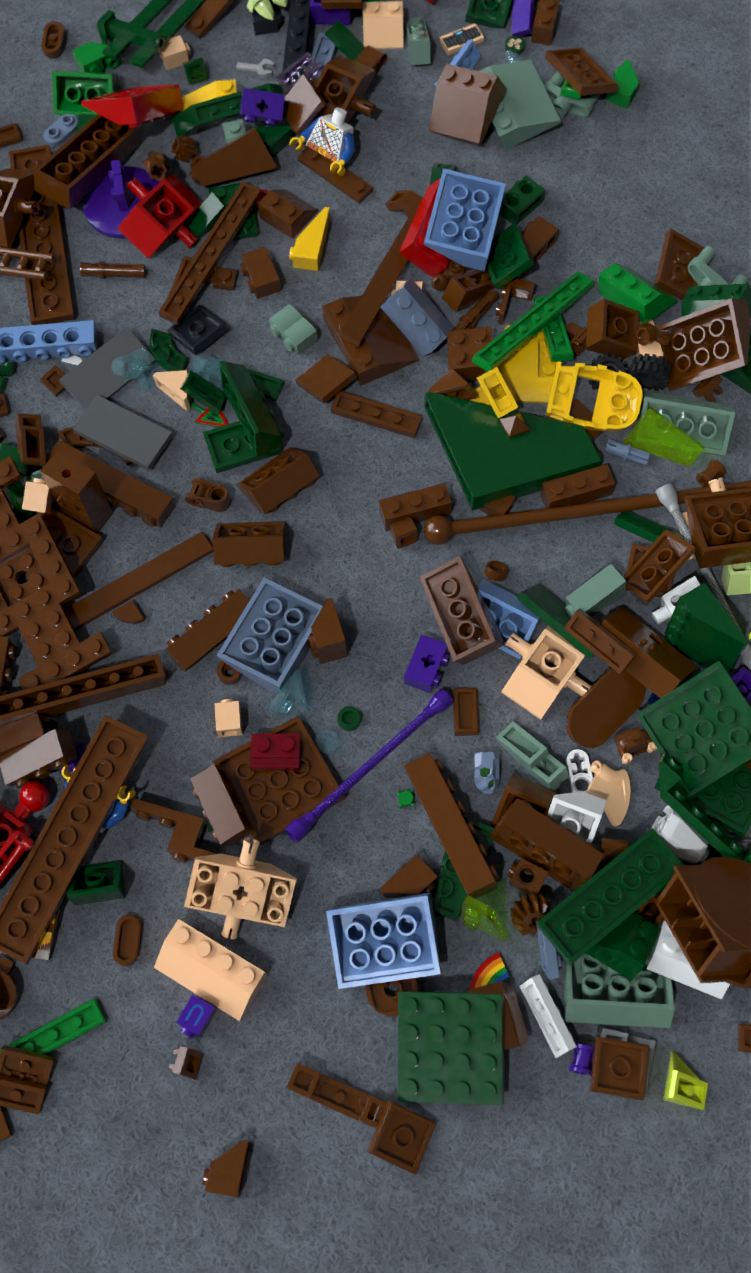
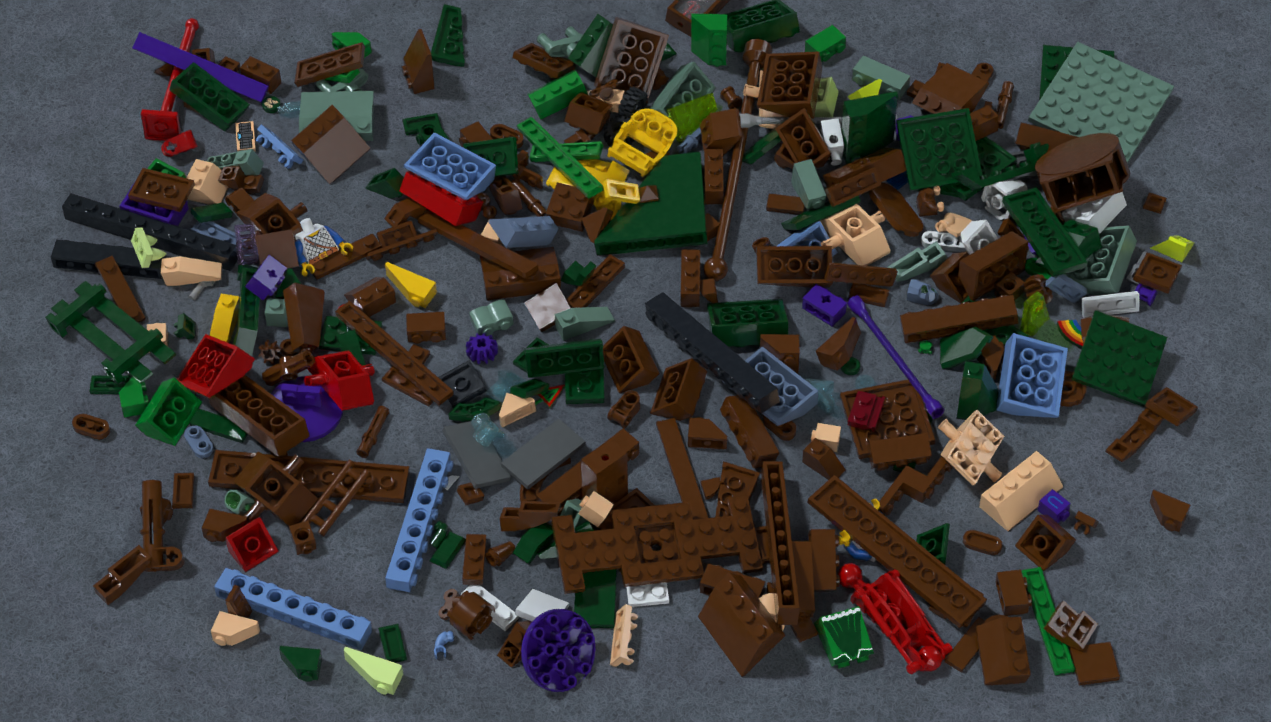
camera: 75 degrees left, 15 degrees down
(54, 994) = (1012, 592): none -> reddish brown brick
(131, 639) = (734, 482): none -> reddish brown wing
(141, 1018) = (1045, 541): none -> reddish brown slope
(193, 723) = (822, 459): none -> reddish brown slope
(196, 584) = (705, 434): none -> reddish brown slope
(249, 332) = (481, 348): none -> dark purple gear
(263, 48) = (185, 271): none -> light nougat slope
(293, 557) = (712, 353): none -> black brick
(319, 416) = (581, 320): none -> sand green slope
(338, 876) = (977, 391): none -> dark green slope
(366, 697) = (839, 346): none -> reddish brown slope
(373, 210) = (398, 237): none -> reddish brown bracket
(373, 586) = (744, 321): none -> dark green slope
(379, 391) = (577, 274): none -> dark green slope
(399, 51) = (235, 178): none -> reddish brown slope
(410, 841) = (962, 347): none -> dark green tile
(482, 688) = (860, 274): none -> reddish brown bracket
(544, 179) = (411, 124): none -> dark green tile
(556, 267) = (506, 132): none -> reddish brown plate
(569, 575) = (785, 204): none -> reddish brown tile
(614, 151) = (418, 65): none -> reddish brown slope
(643, 473) = (721, 130): none -> reddish brown slope
(674, 169) = (448, 40): none -> dark green wing

